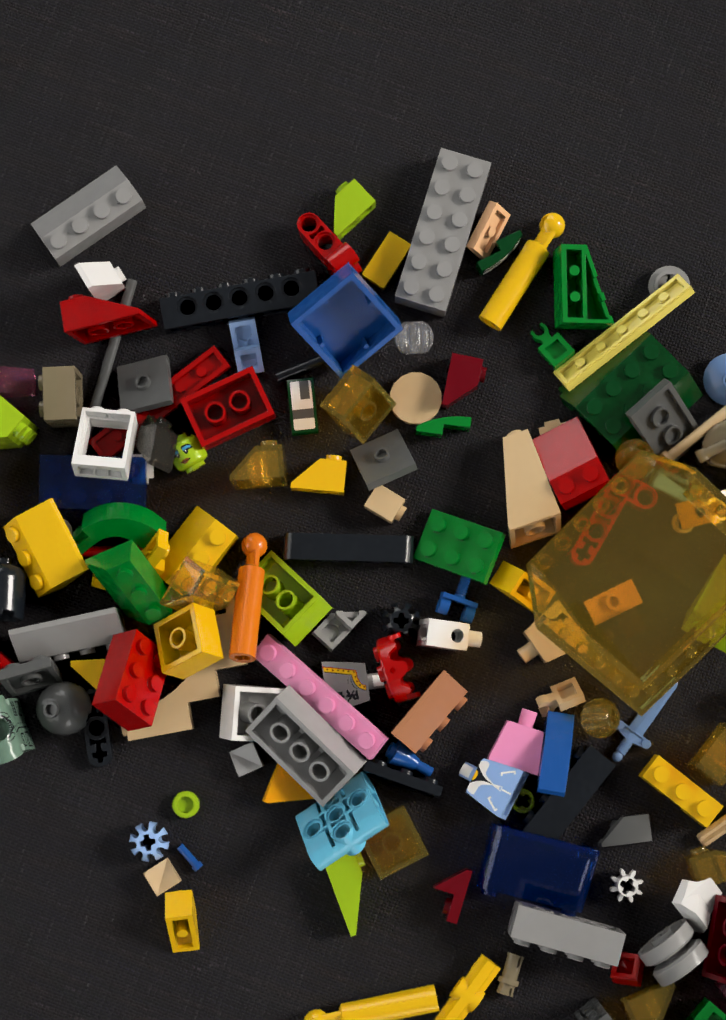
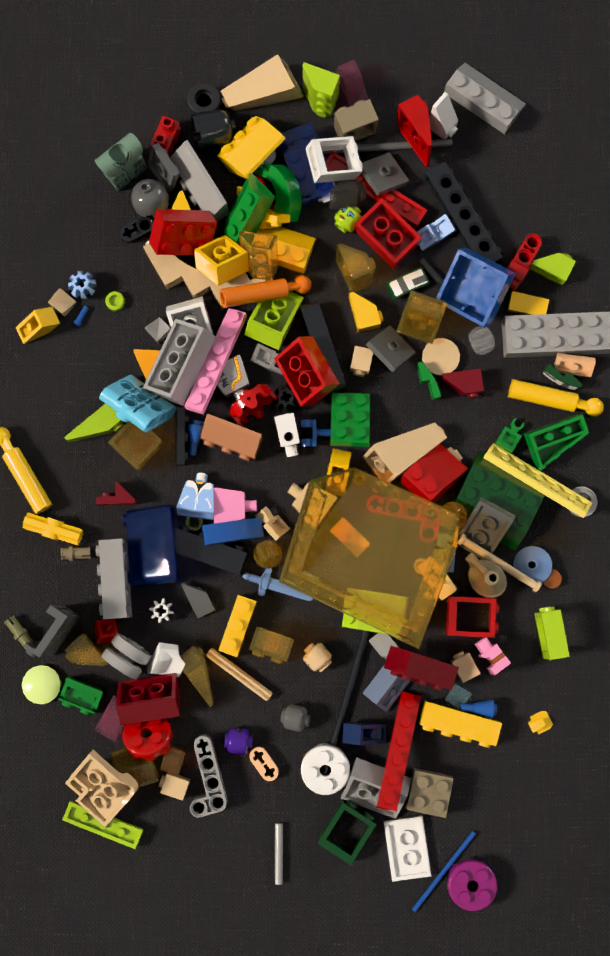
camera: 65 degrees right, 0 degrees up
(376, 581) = (306, 371): none -> red brick

